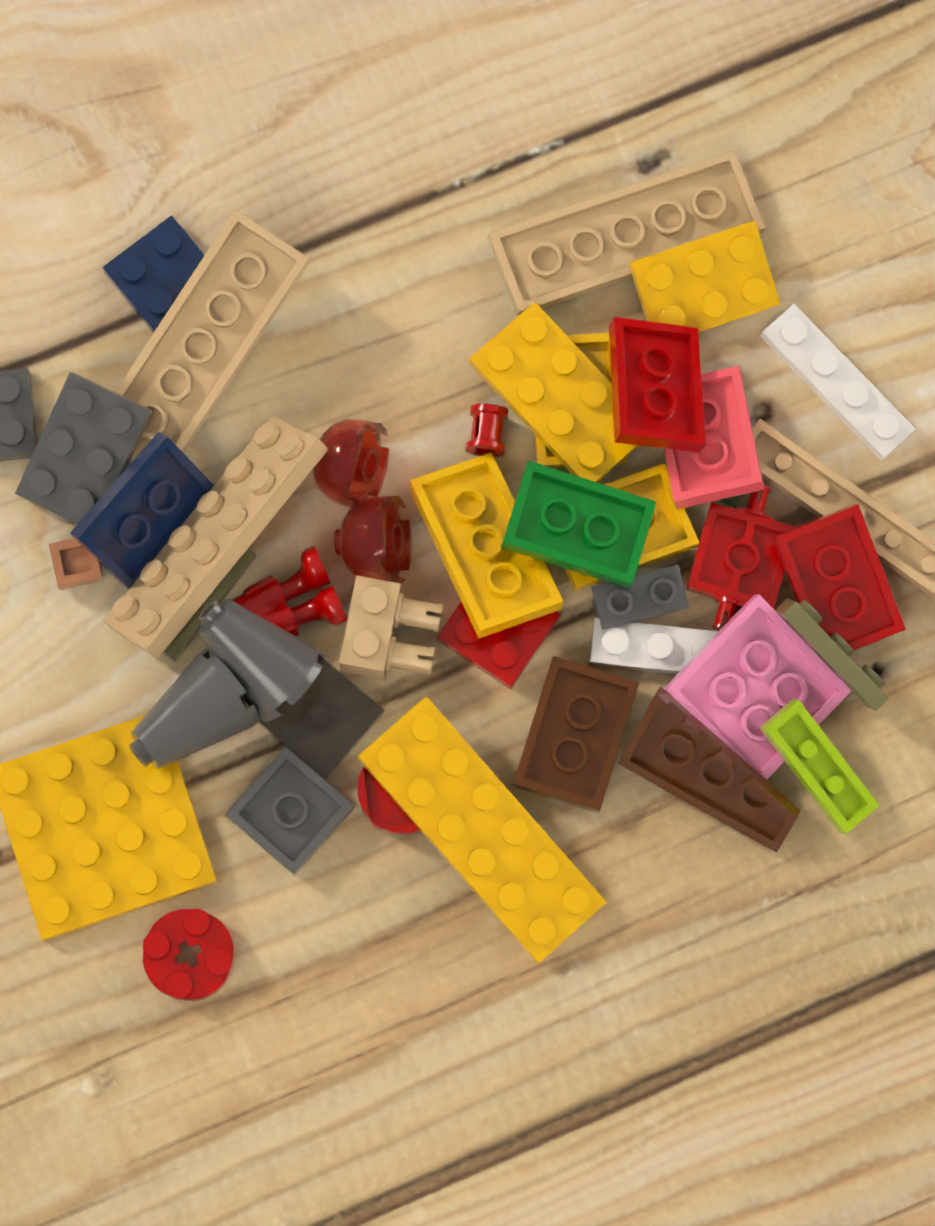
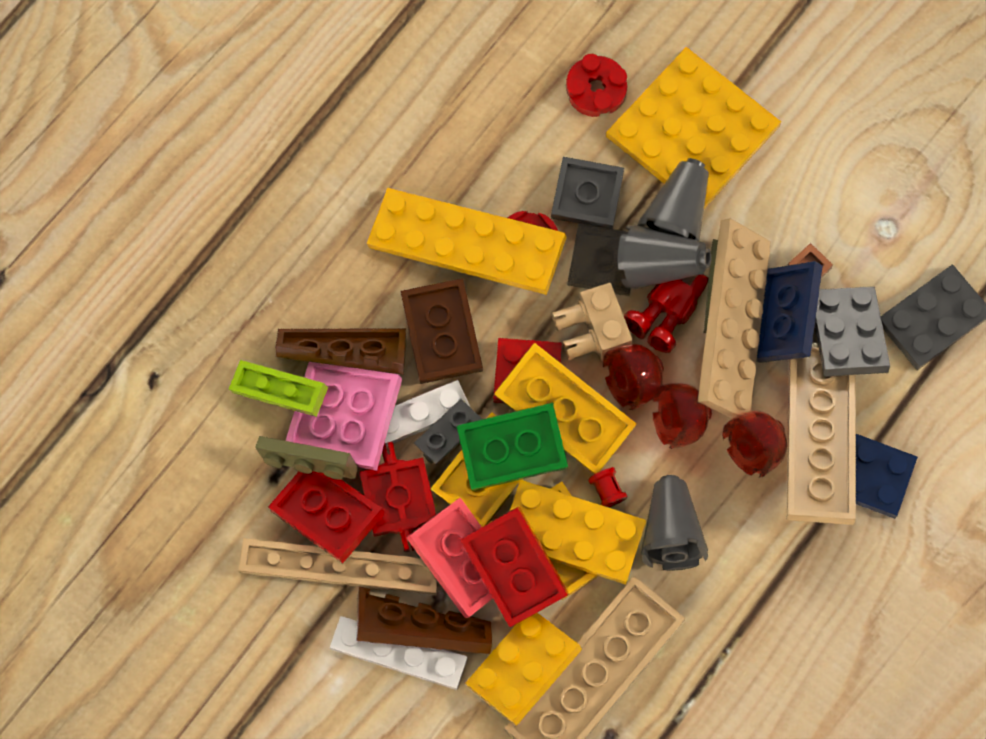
camera: 155 degrees right, 5 degrees down
(279, 381) = (756, 442): none -> clear red cylinder
(439, 341) = (672, 528): none -> dark grey cone
(813, 400) = (421, 626): none -> reddish brown wing

